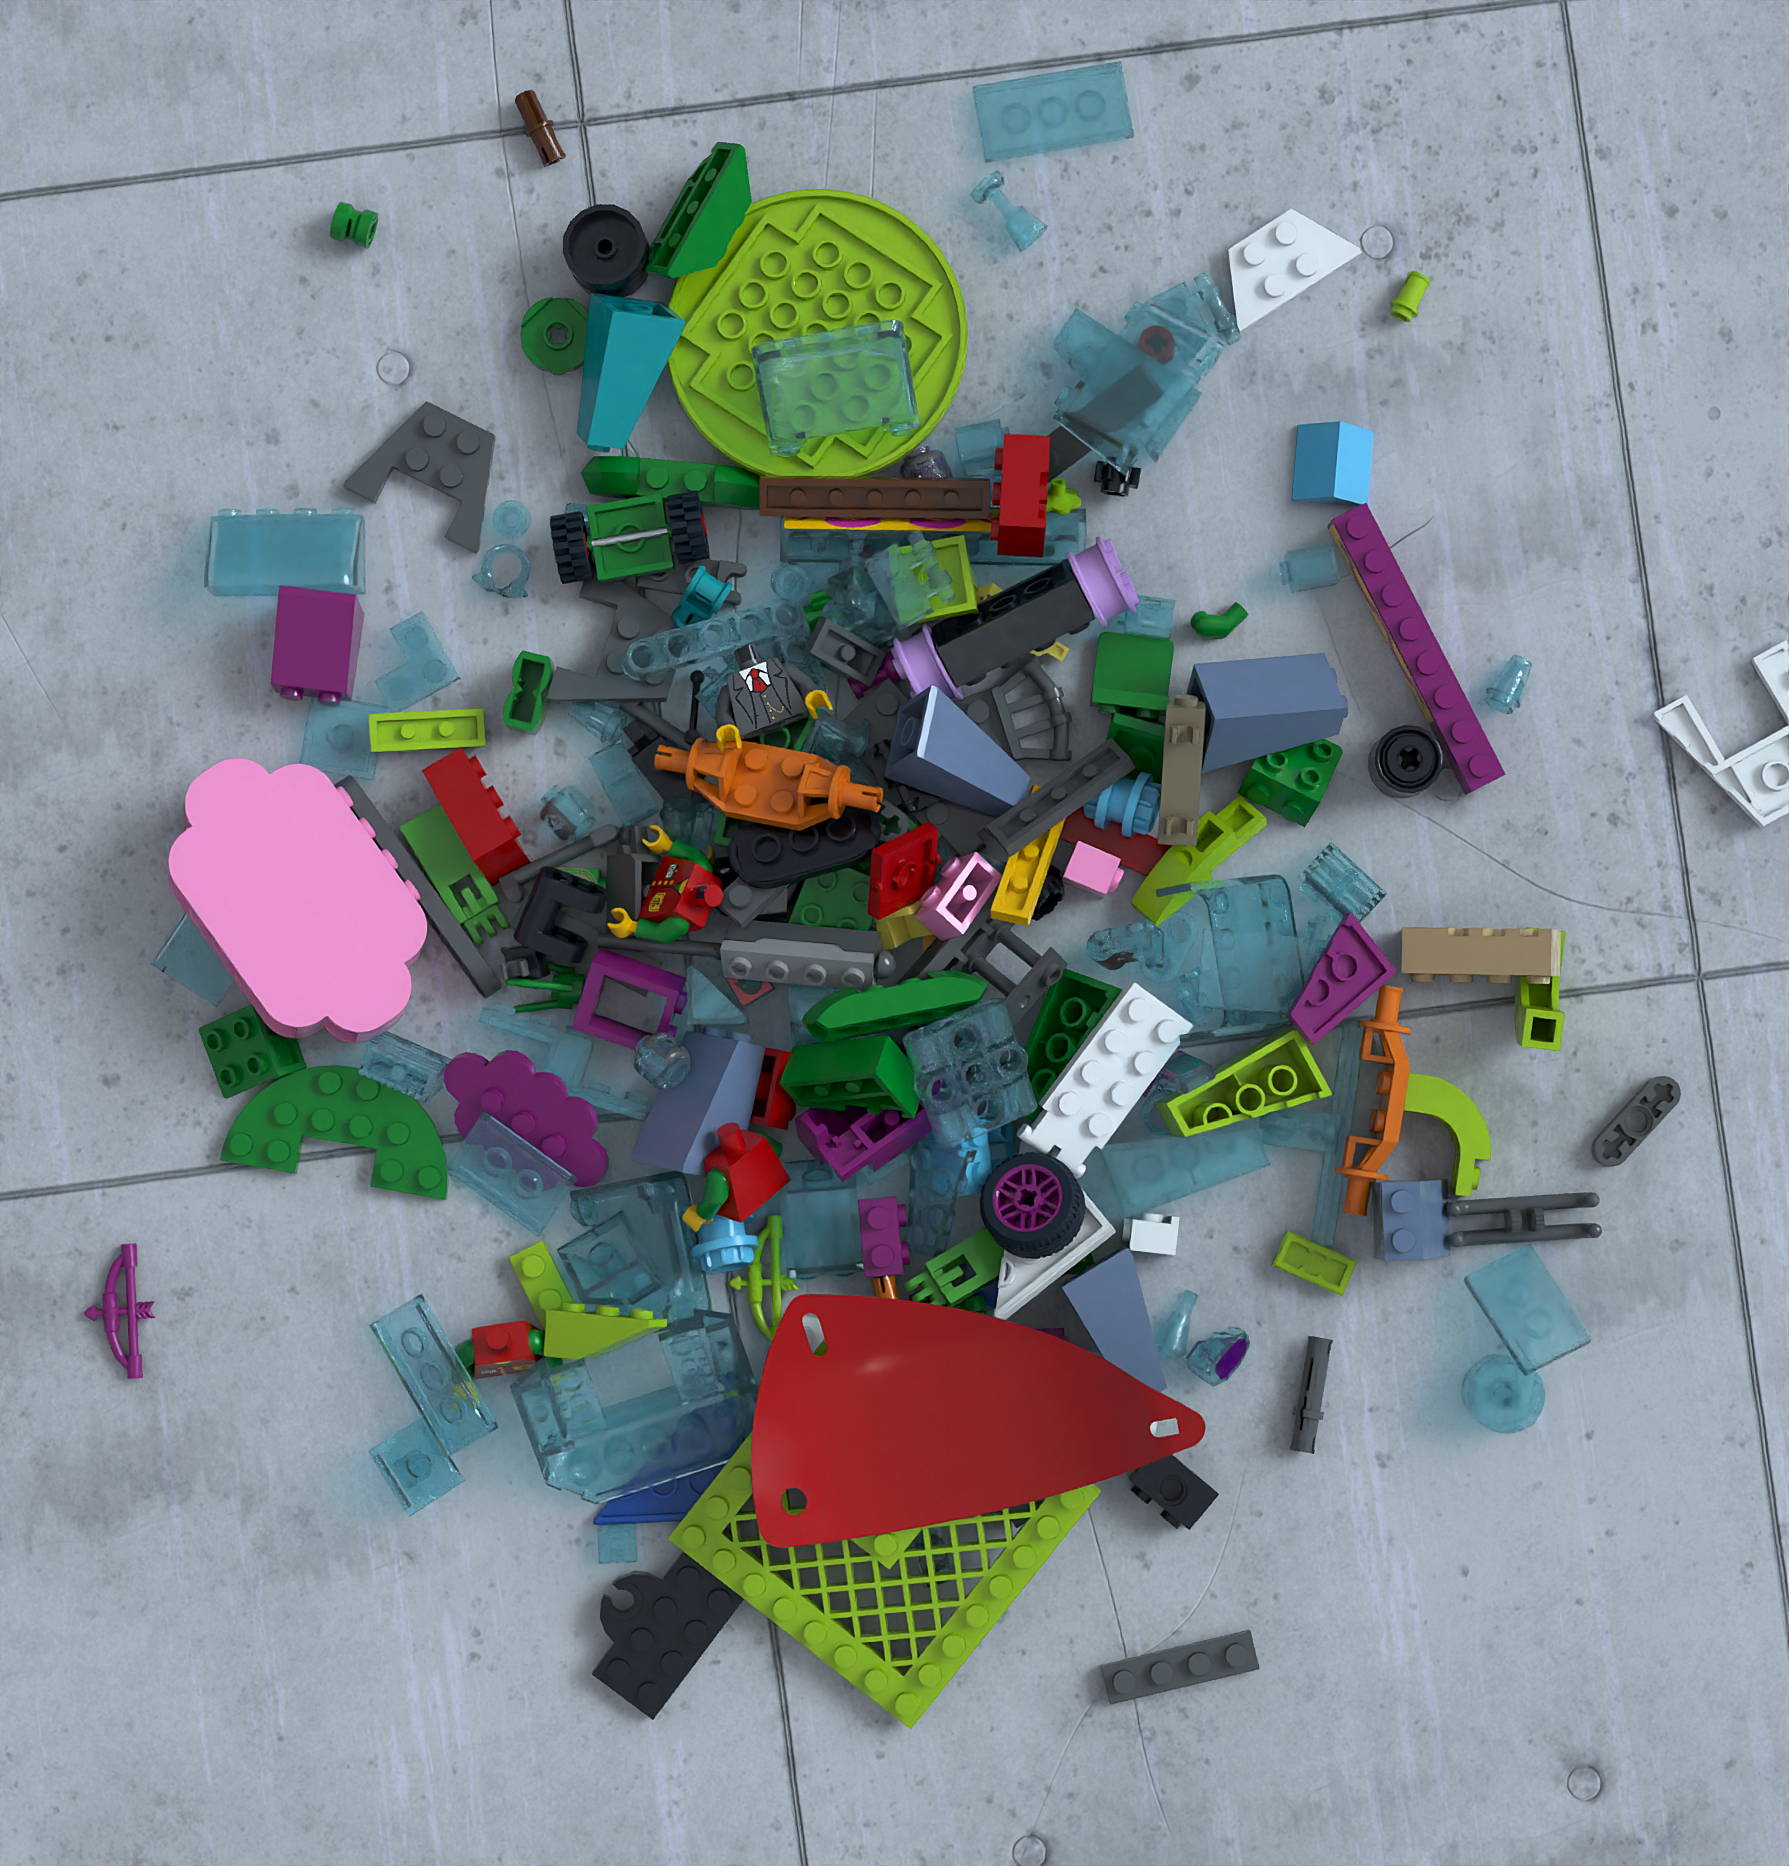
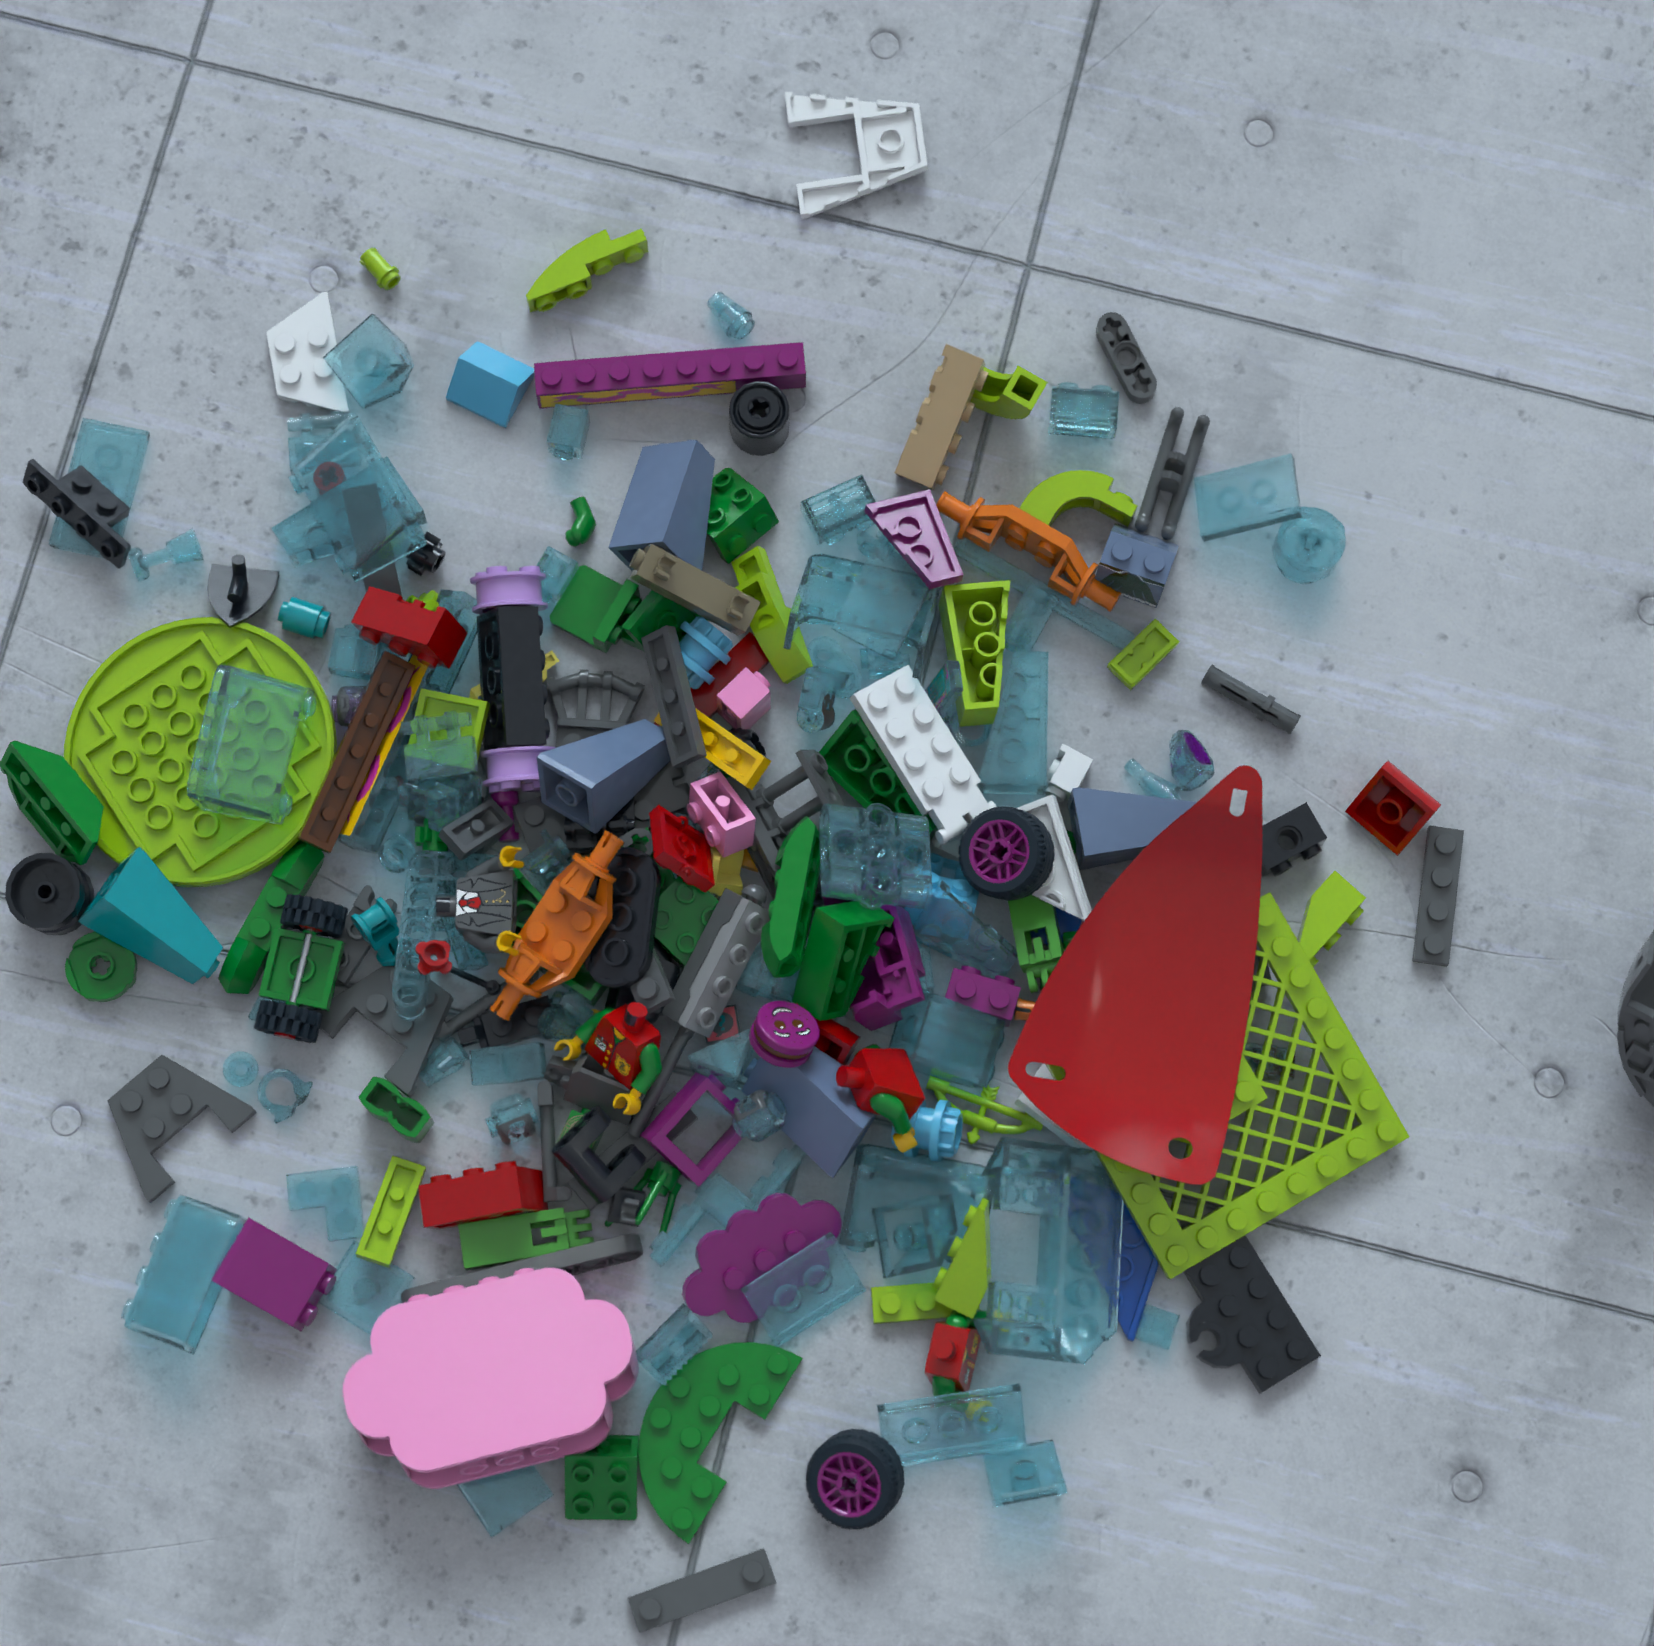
camera: 70 degrees left, 10 degrees down
(181, 1191) = (701, 1590): none -> dark grey plate
(342, 1300) = (876, 1472): none -> wheel
(699, 671) = (437, 948): none -> red plate
(749, 1053) = (784, 1034): none -> magenta head
(999, 381) = (304, 618): none -> teal brick
(1001, 303) = (239, 591): none -> shield
(1025, 105) = (84, 506): none -> black bracket
(1109, 1557) = (1326, 912): none -> lime slope
(1251, 1586) = (1393, 807): none -> red brick
(1299, 332) = (371, 362): none -> clear light blue slope
(1487, 497) = (571, 271): none -> lime slope
(1556, 1099) = (1083, 411): none -> clear light blue brick

